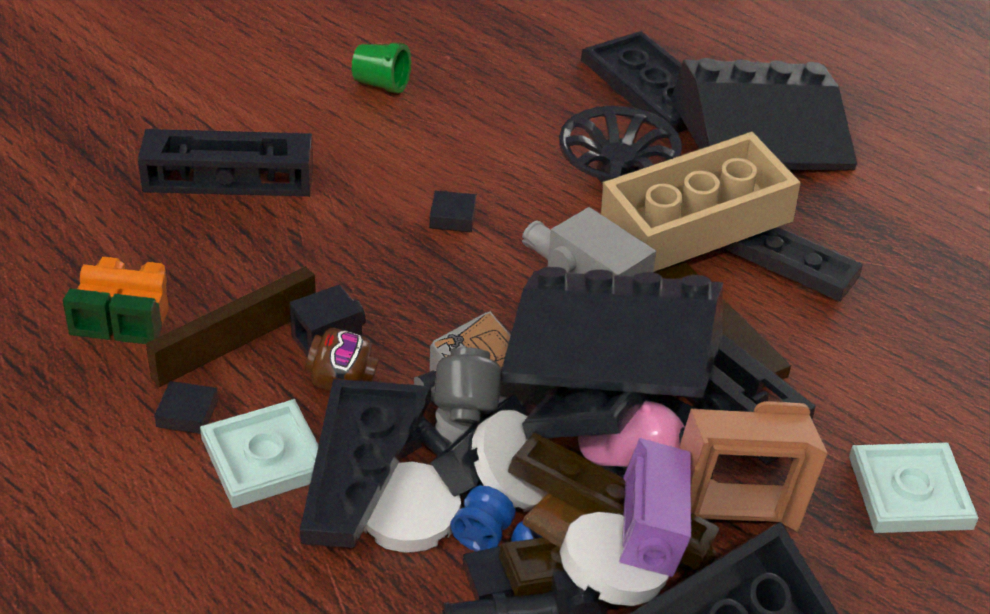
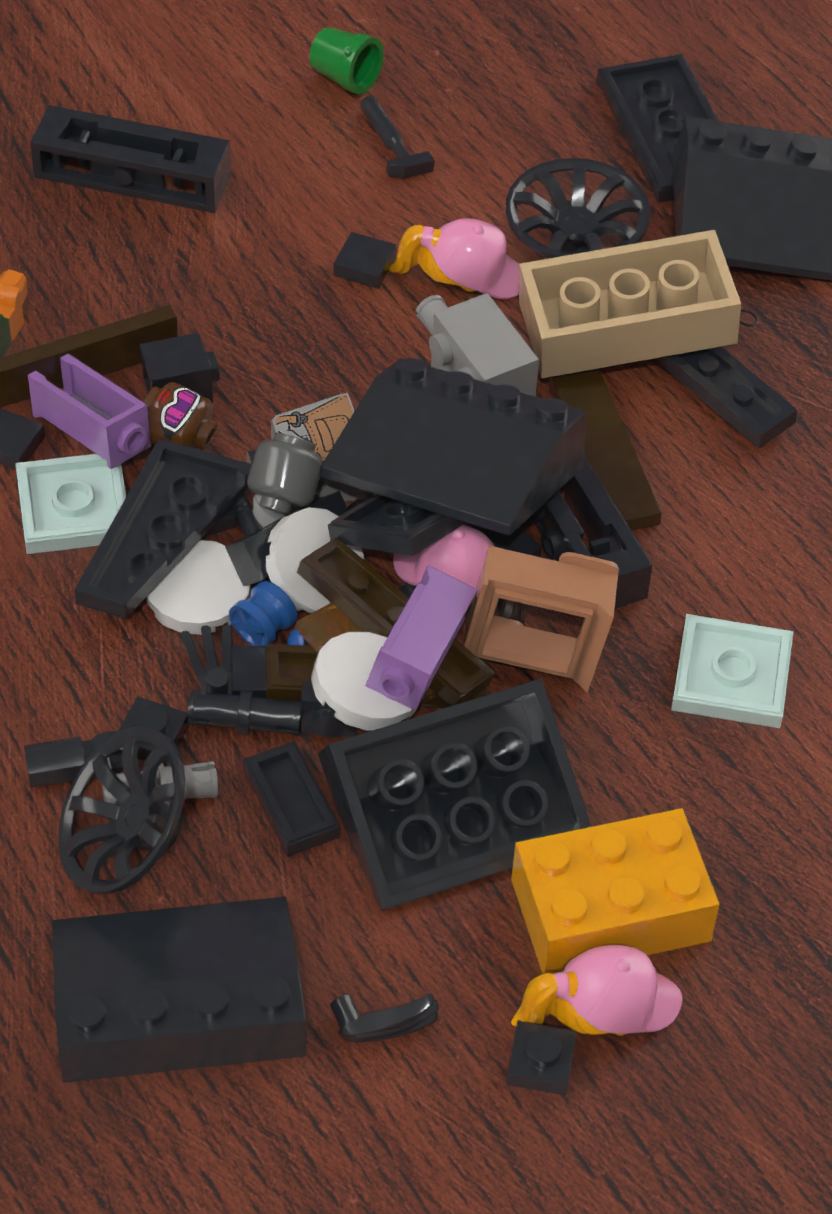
camera: 15 degrees right, 10 degrees up
(262, 366) = (92, 411): none -> medium lavender window
(452, 587) = (214, 677): none -> black piece
(456, 136) = (406, 164): none -> black piece
(533, 190) = (461, 254): none -> bright pink hair

